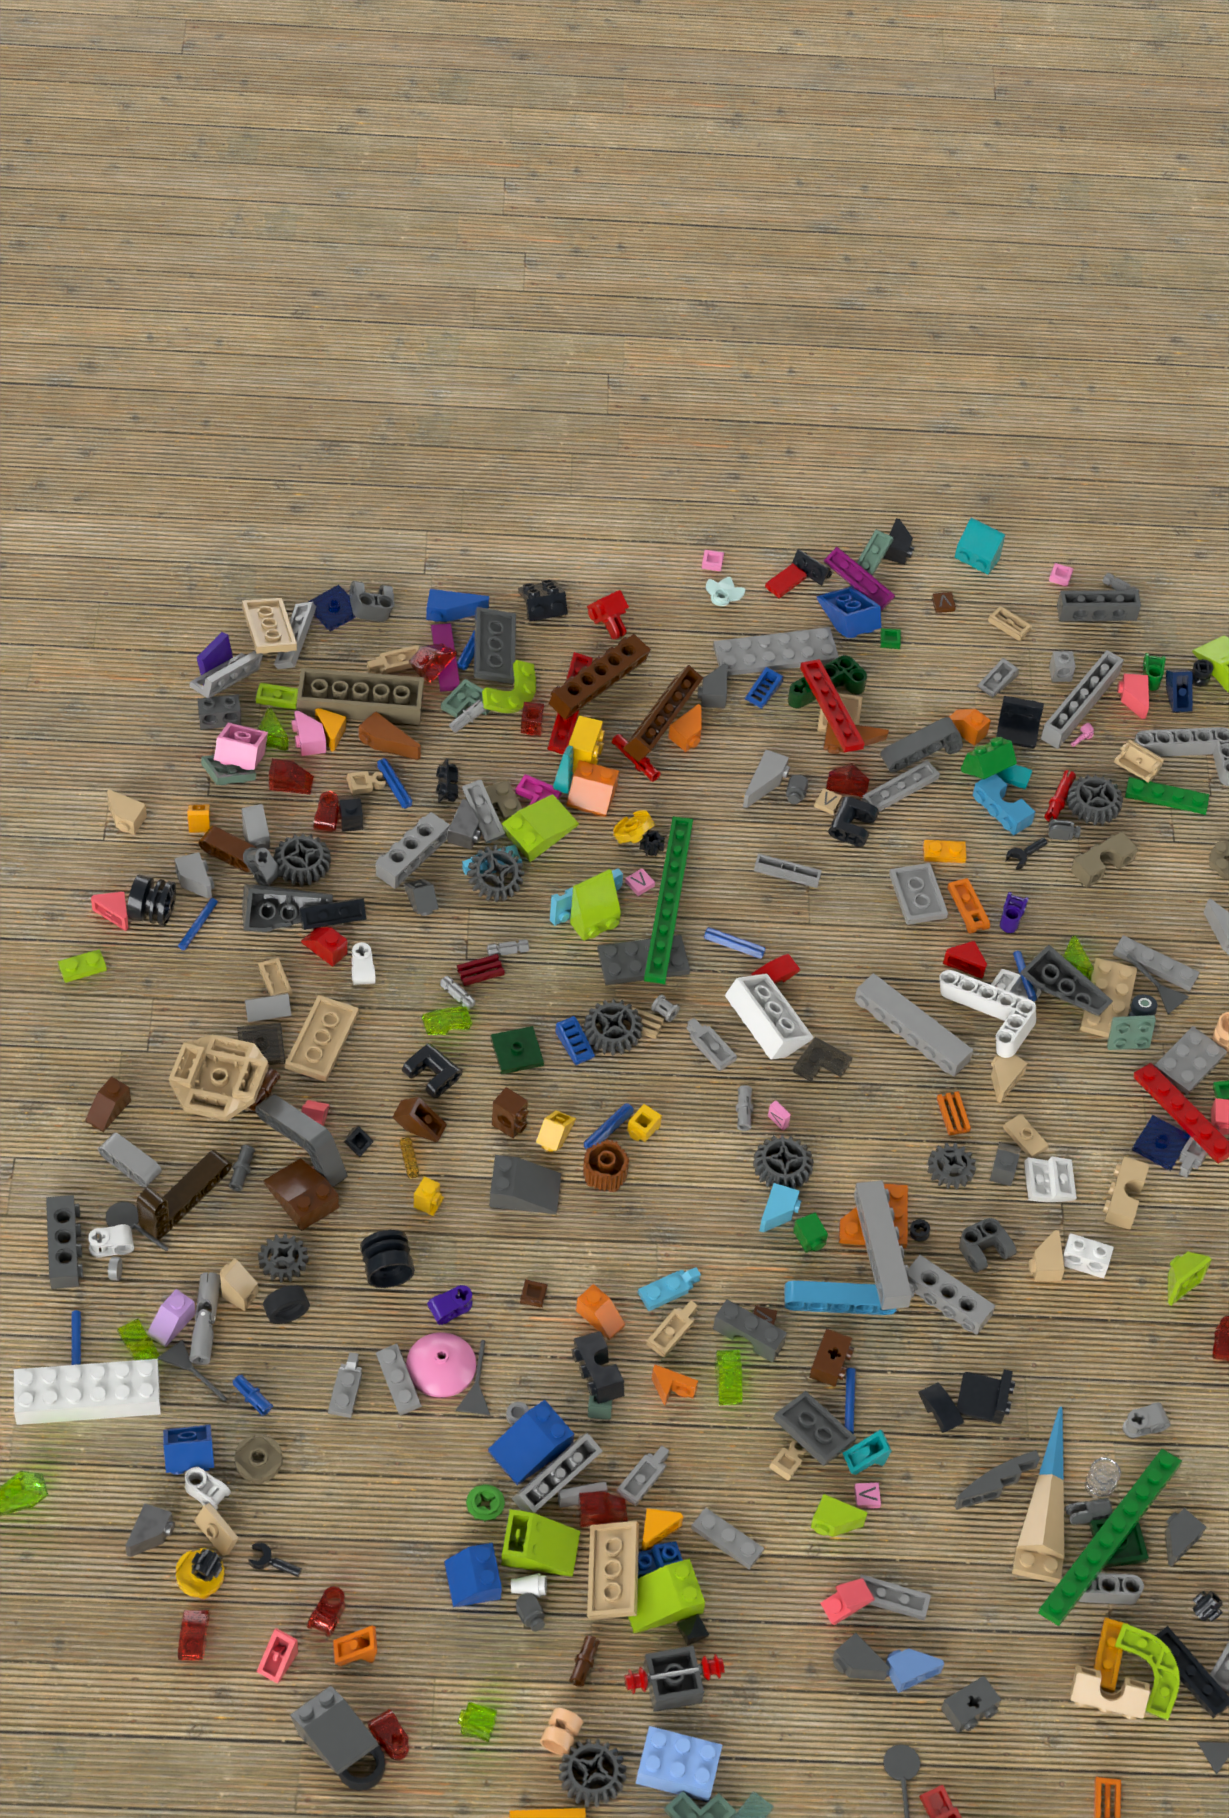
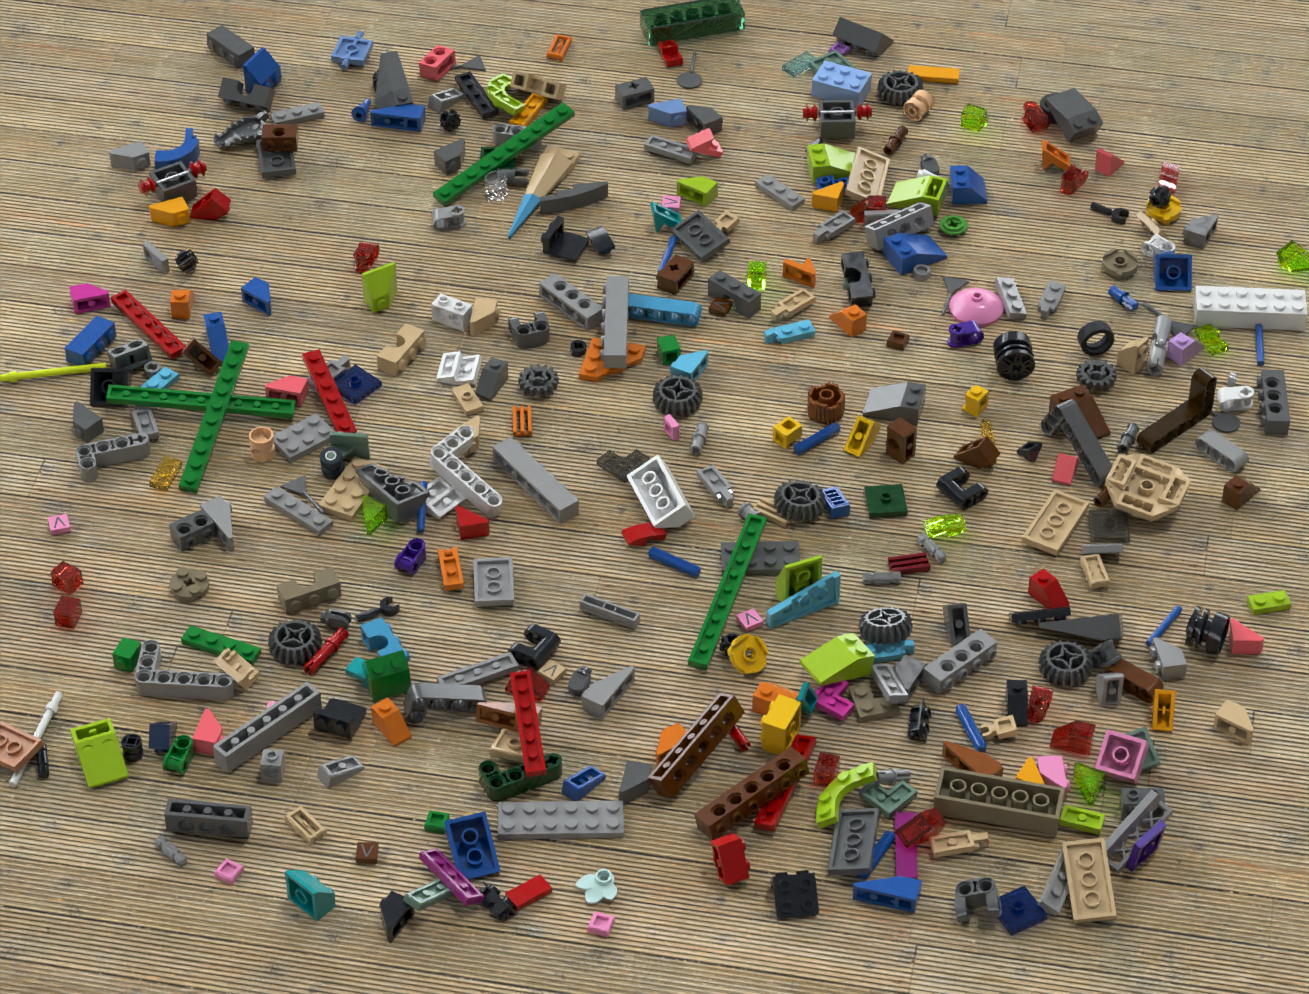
camera: 165 degrees left, 10 degrees down
(362, 964) = (1015, 569): white piece -> none
(944, 851) = (455, 618): light orange plate -> none

